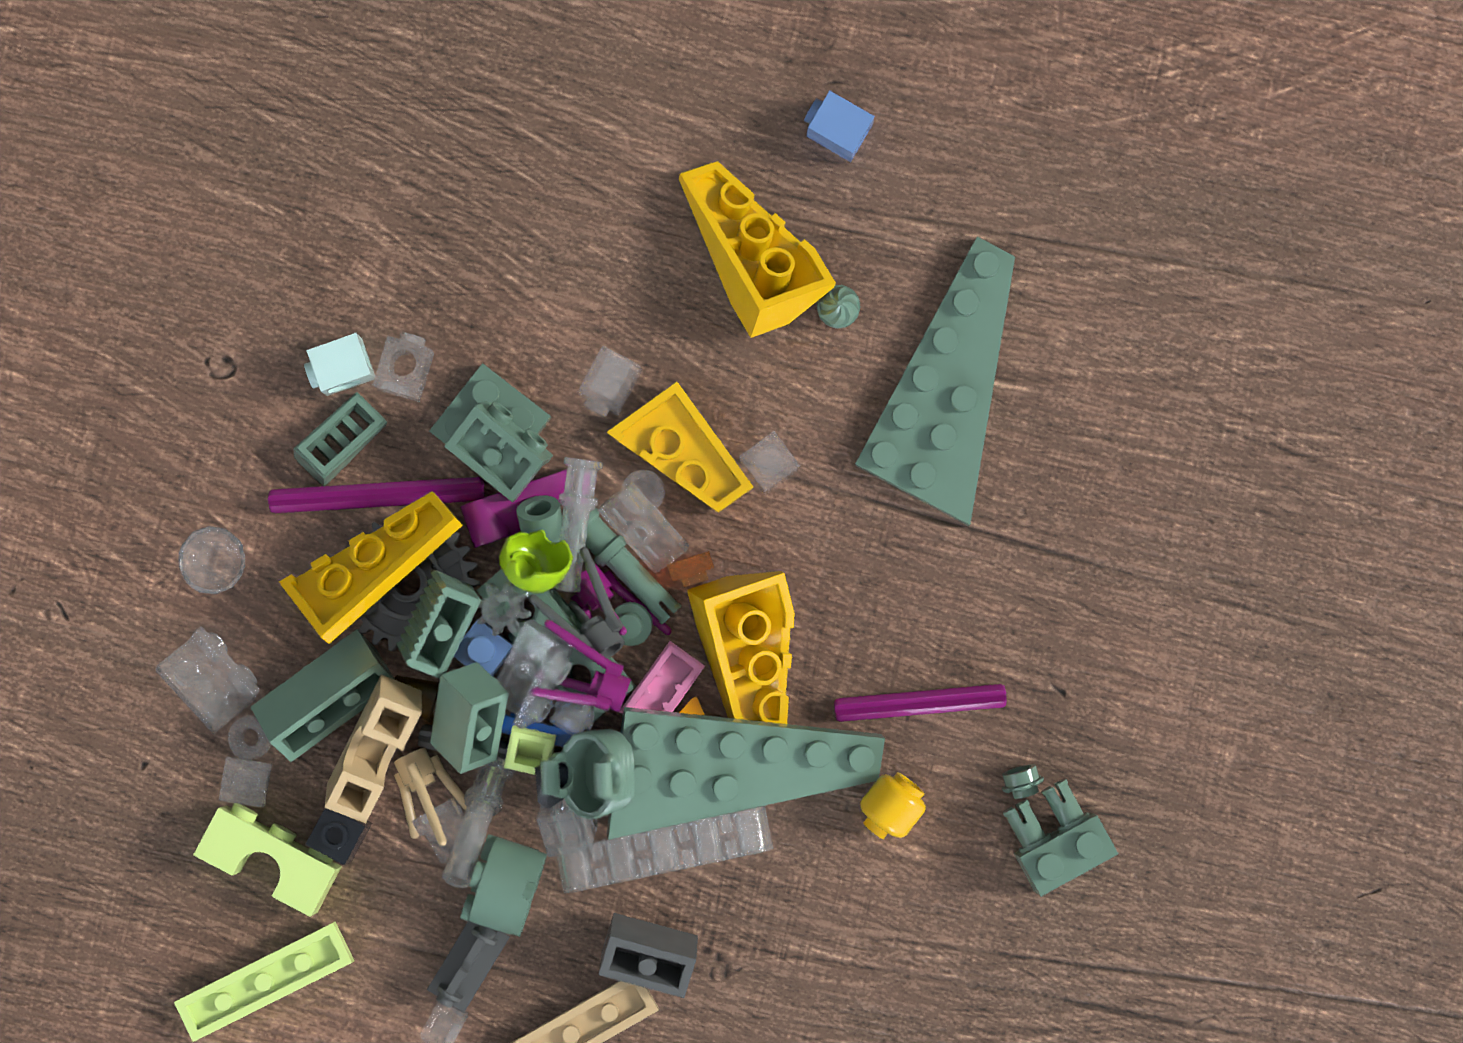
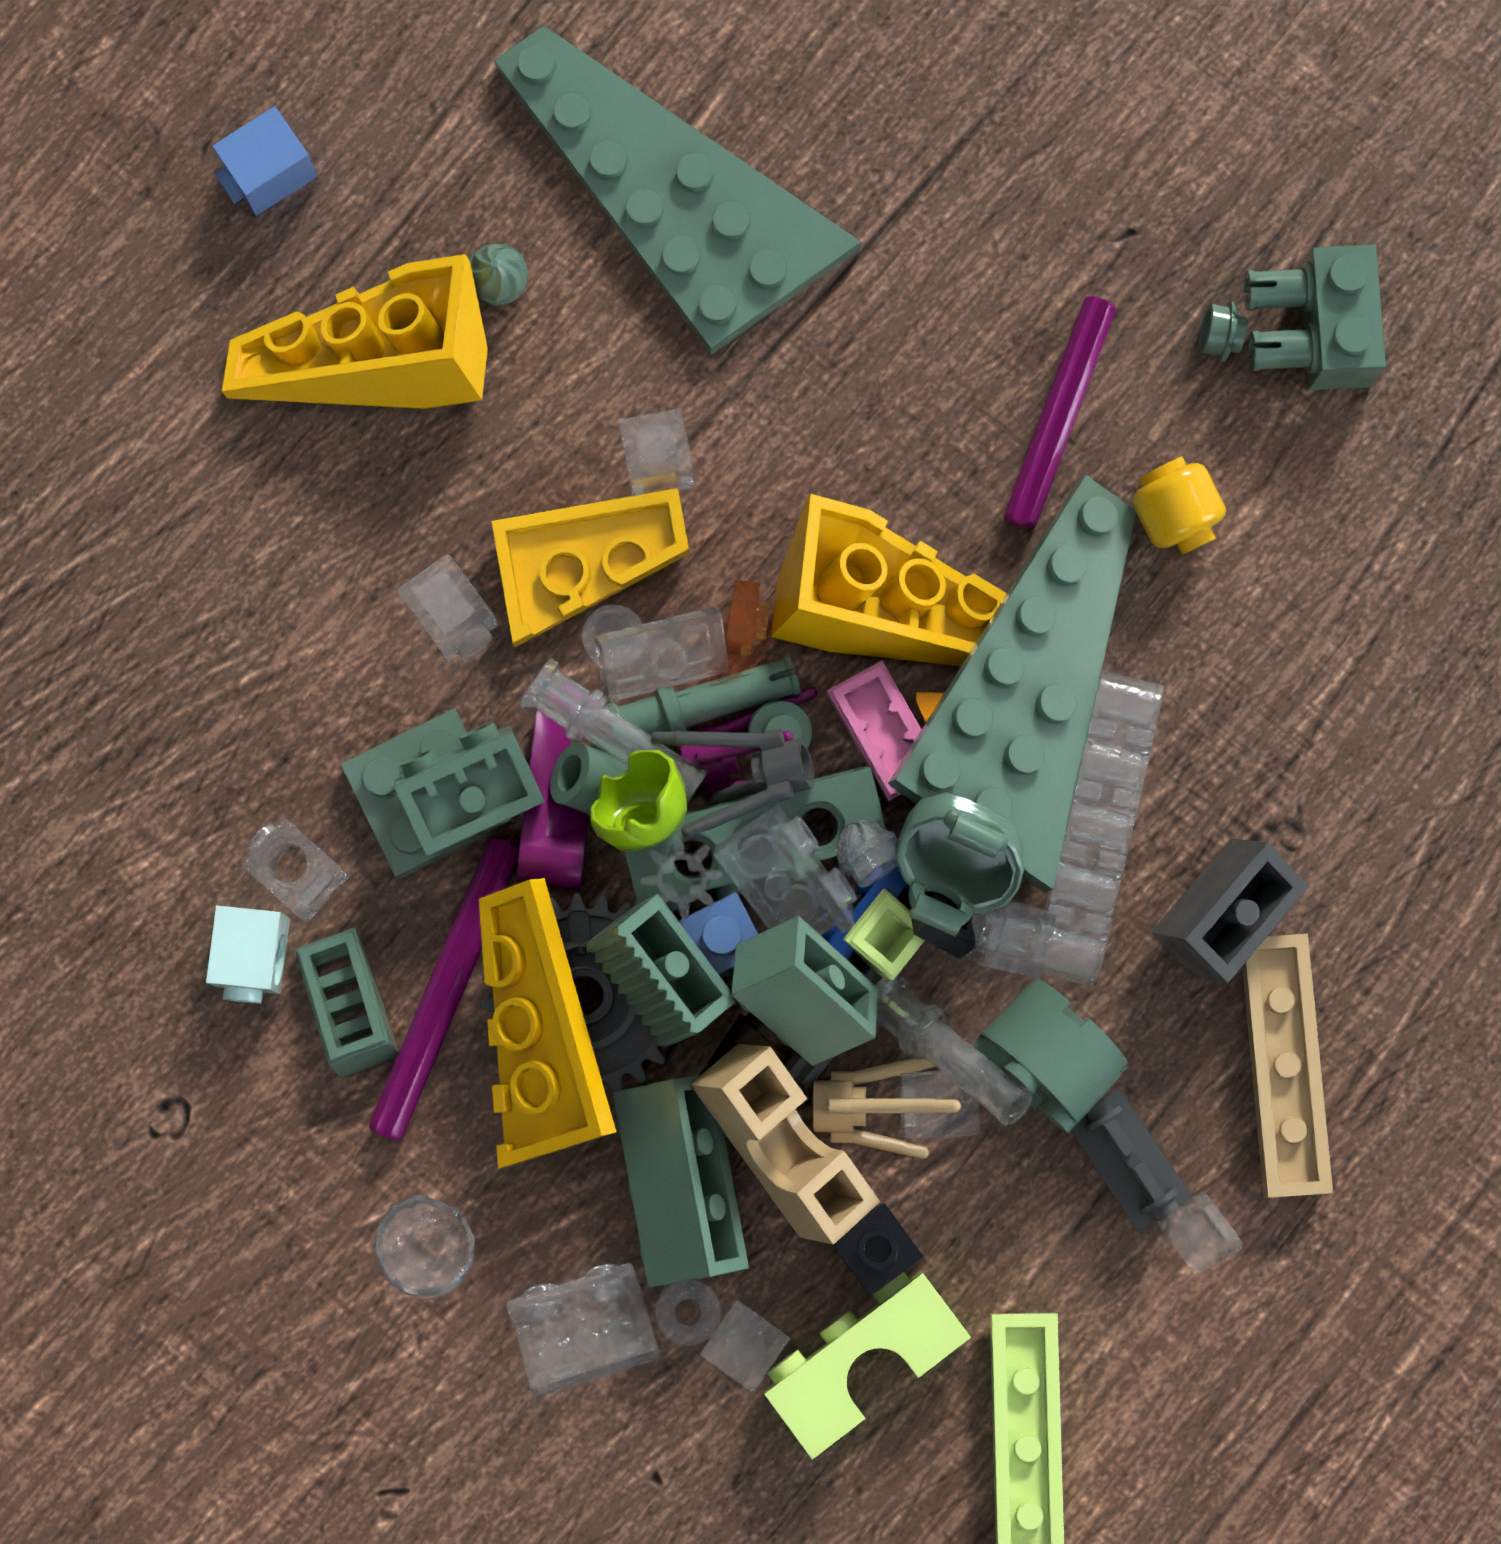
camera: 60 degrees left, 5 degrees down
(606, 688) = (854, 790): magenta plant -> none

